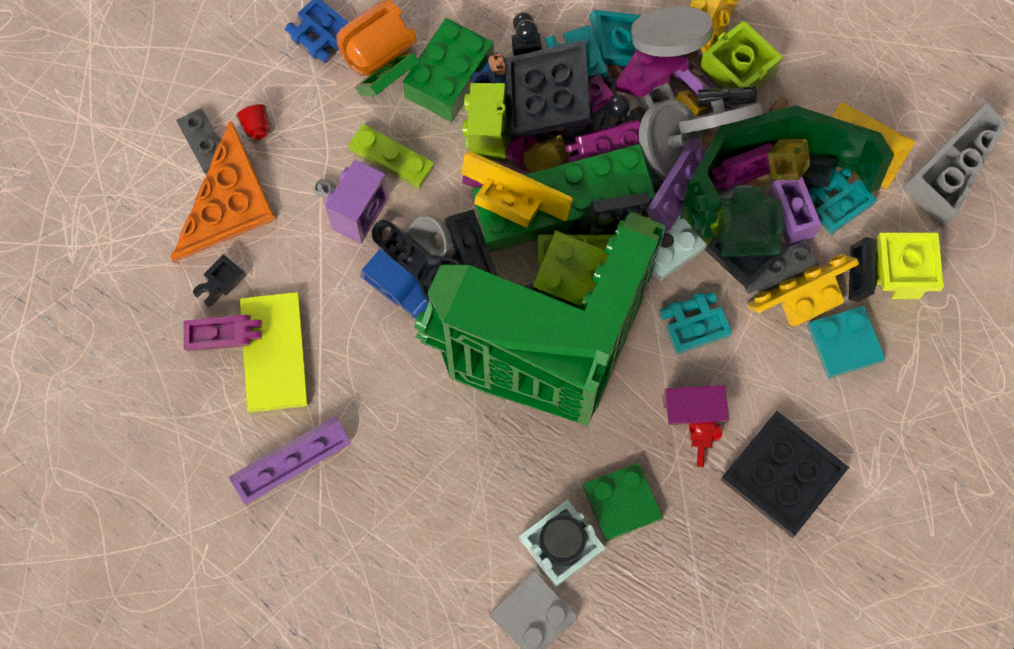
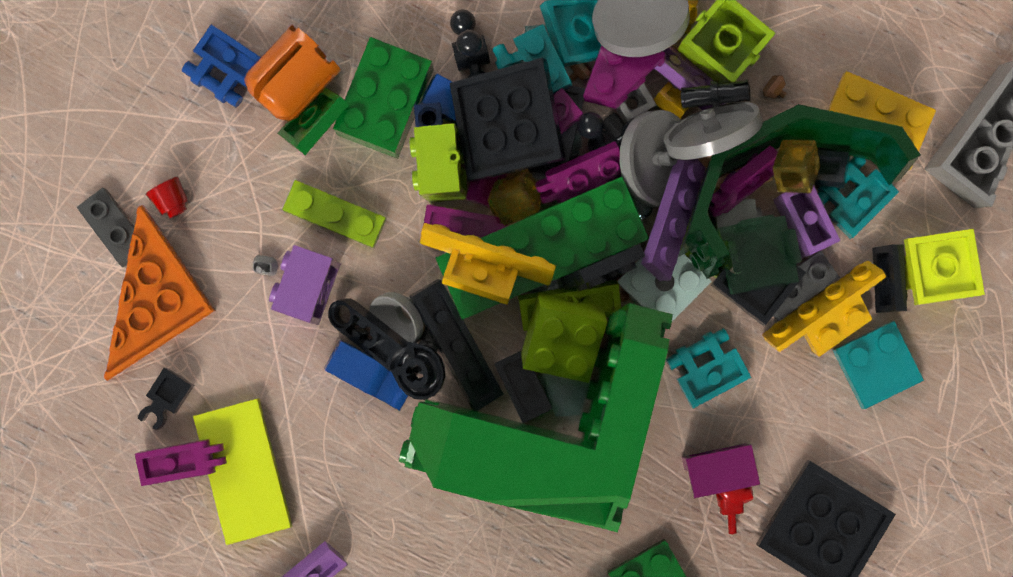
camera: 10 degrees left, 15 degrees up
(497, 64) = (441, 89): nougat rock -> none

